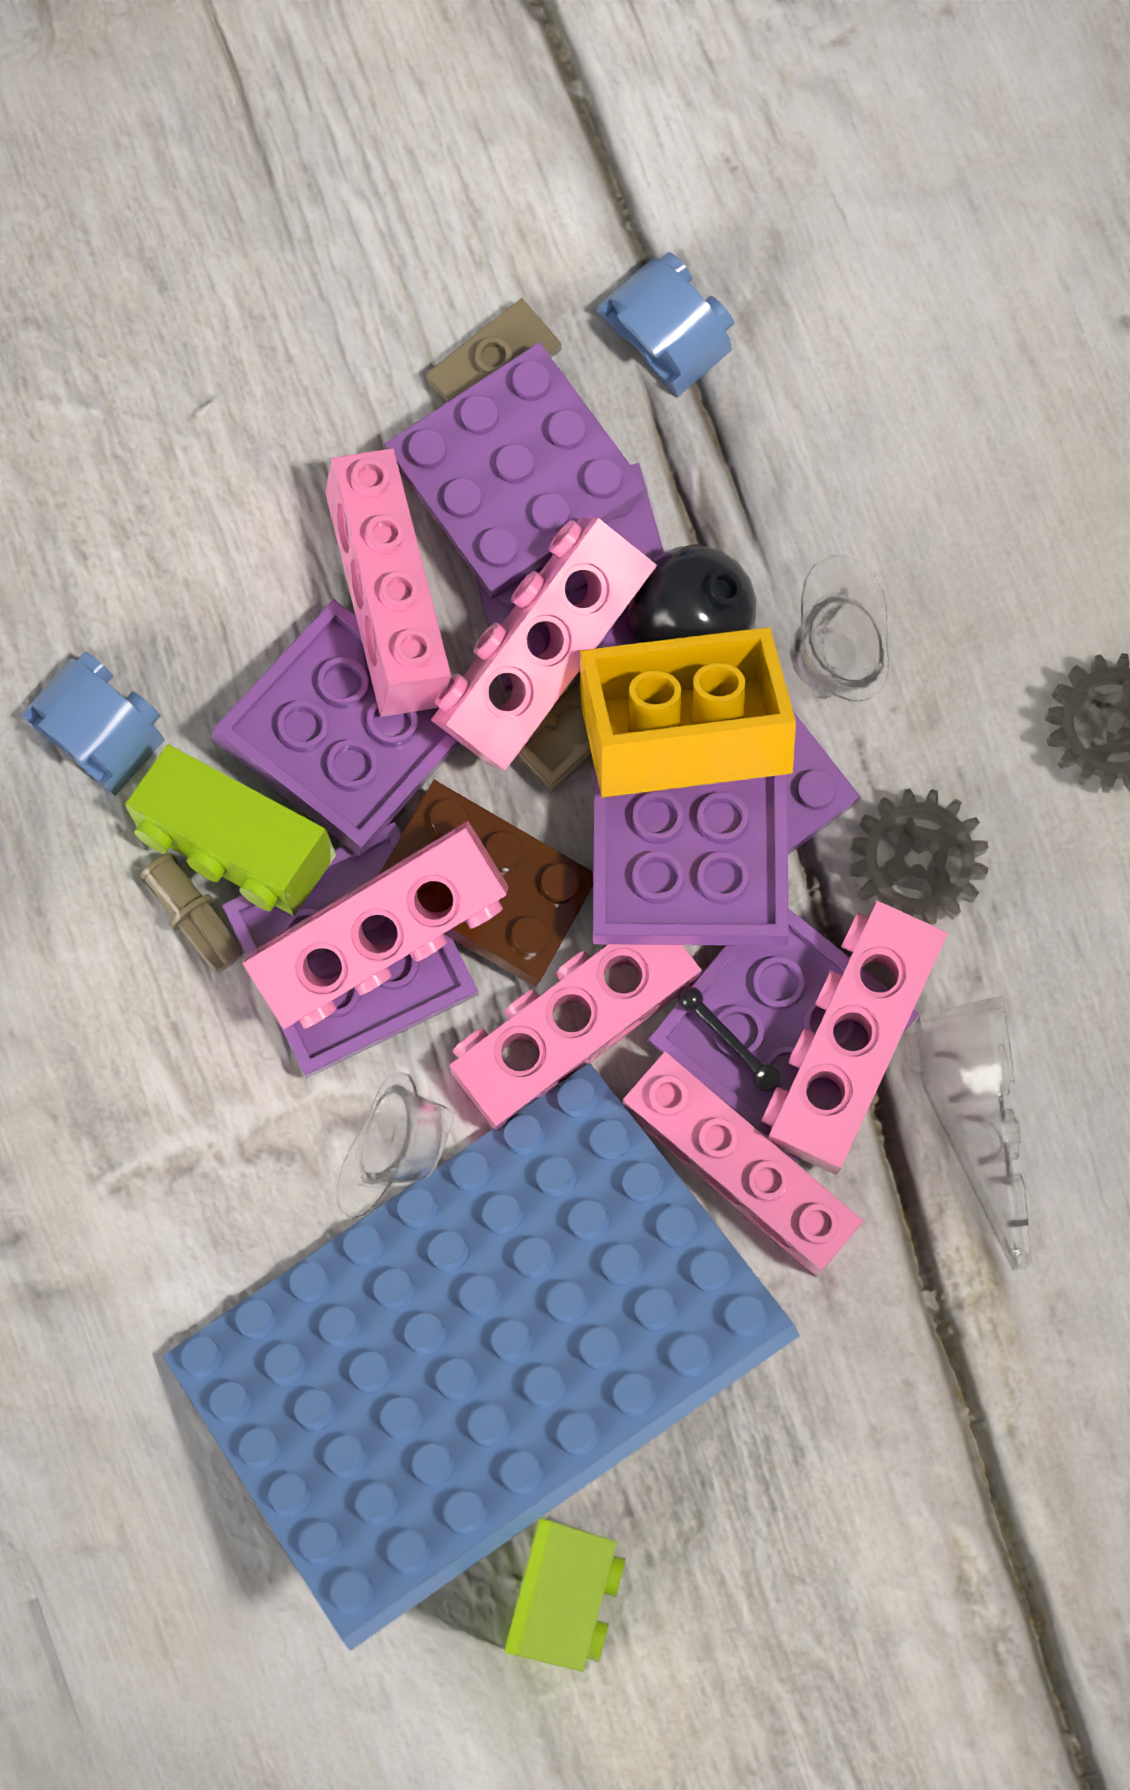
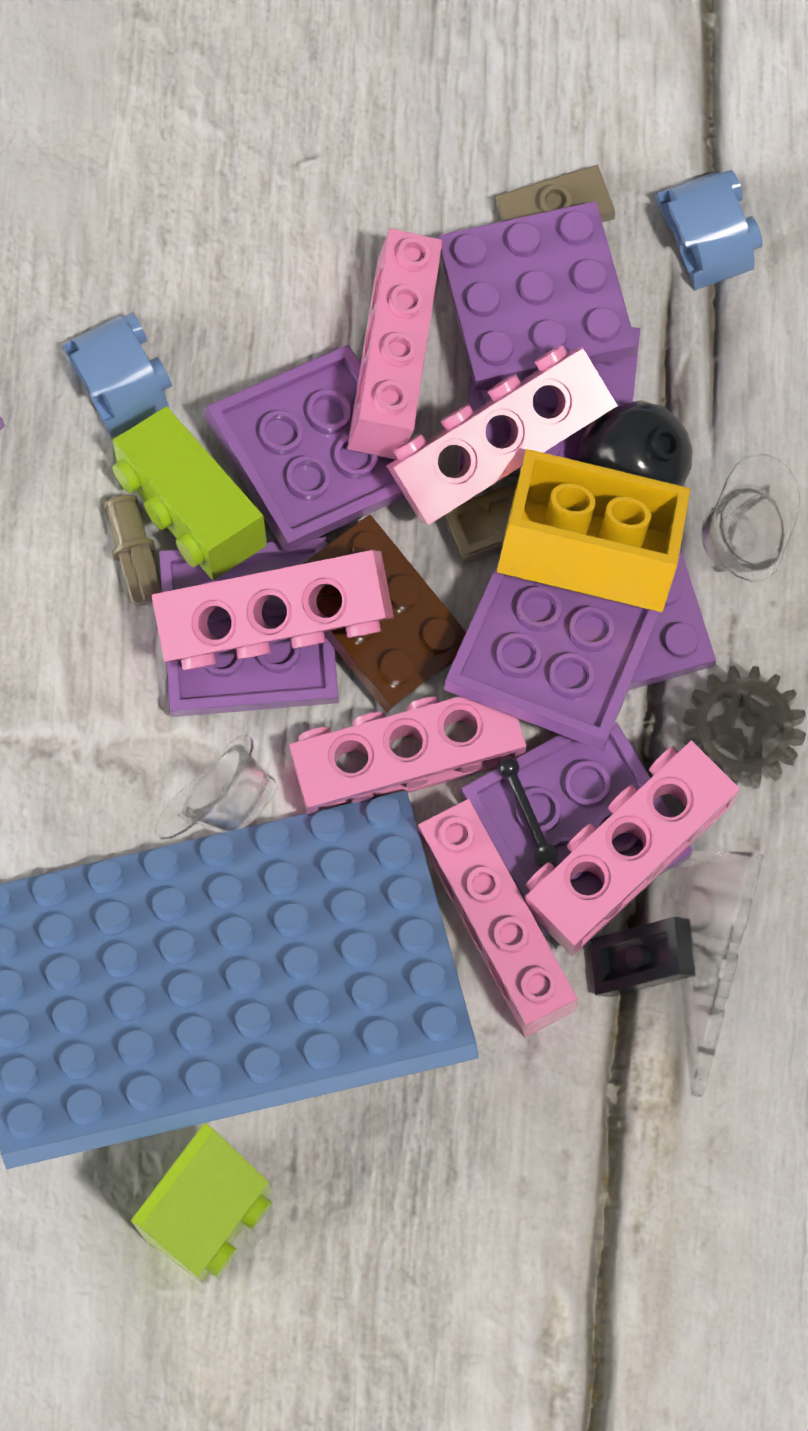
camera: 25 degrees right, 5 degrees down
(912, 1148) = (642, 957): none -> black plate

